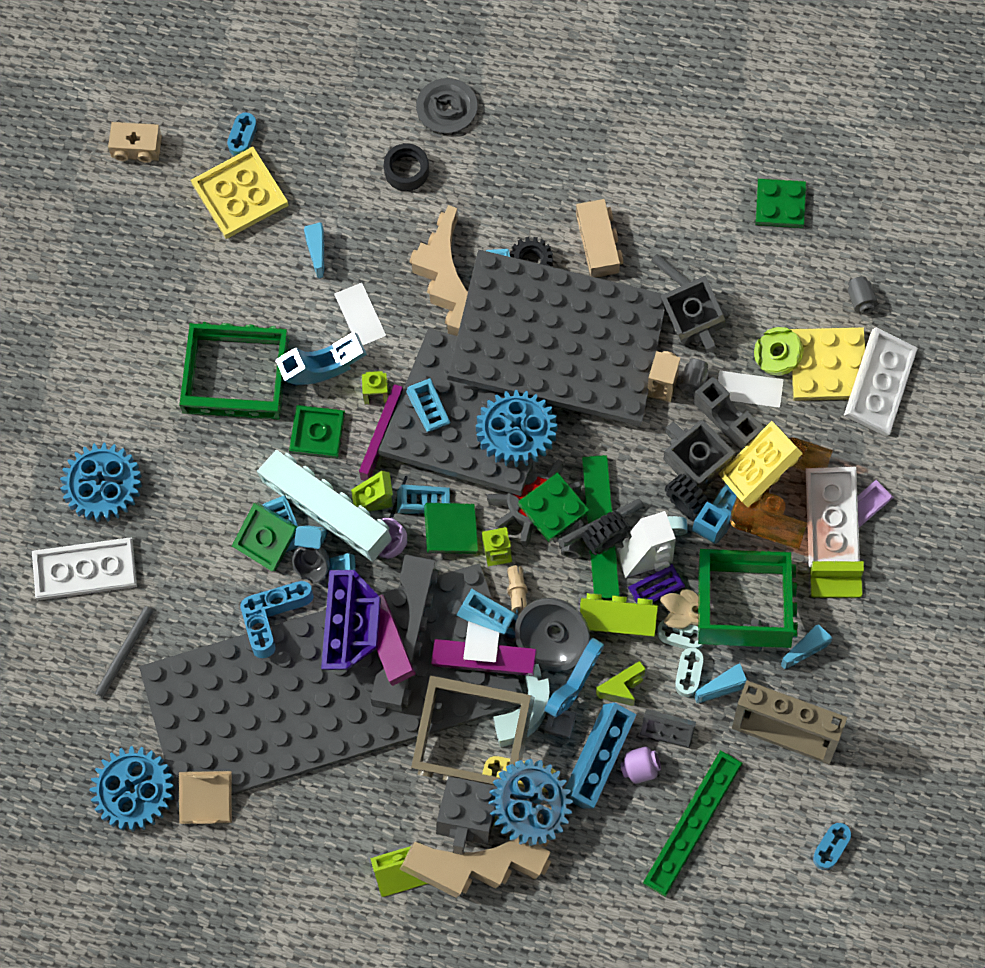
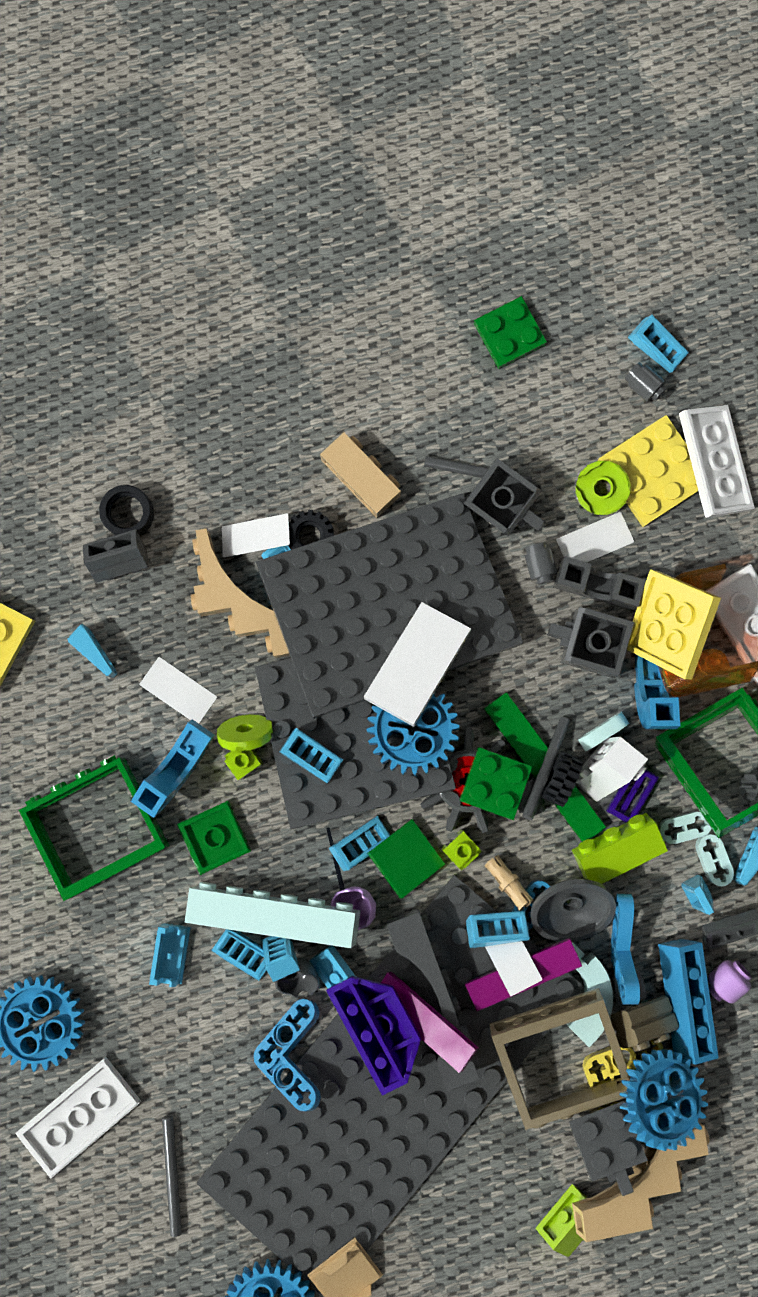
camera: 35 degrees left, 15 degrees up
(229, 492) = (169, 955): none -> medium azure hinge
(264, 536) = (234, 981): green plate -> none
(372, 454) = (278, 805): magenta tile -> none
(374, 492) = (309, 871): lime slope -> none
(377, 191) = (115, 556): none -> dark grey brick
(390, 365) = (244, 731): none -> lime tile
(441, 92) = (112, 409): dark grey gear -> none
(490, 236) = (255, 535): none -> white sticker
(549, 382) = (417, 664): none -> white tile
(553, 747) = (644, 1023): none -> dark tan brick
(616, 687) = (658, 921): lime slope -> none
(660, 684) = (698, 894): none -> medium azure slope
(663, 376) = (516, 581): tan brick -> none
(681, 609) = (669, 802): tan plate -> none
(686, 496) = (612, 691): black tyre -> none
(878, 260) = (651, 349): none -> medium azure slope

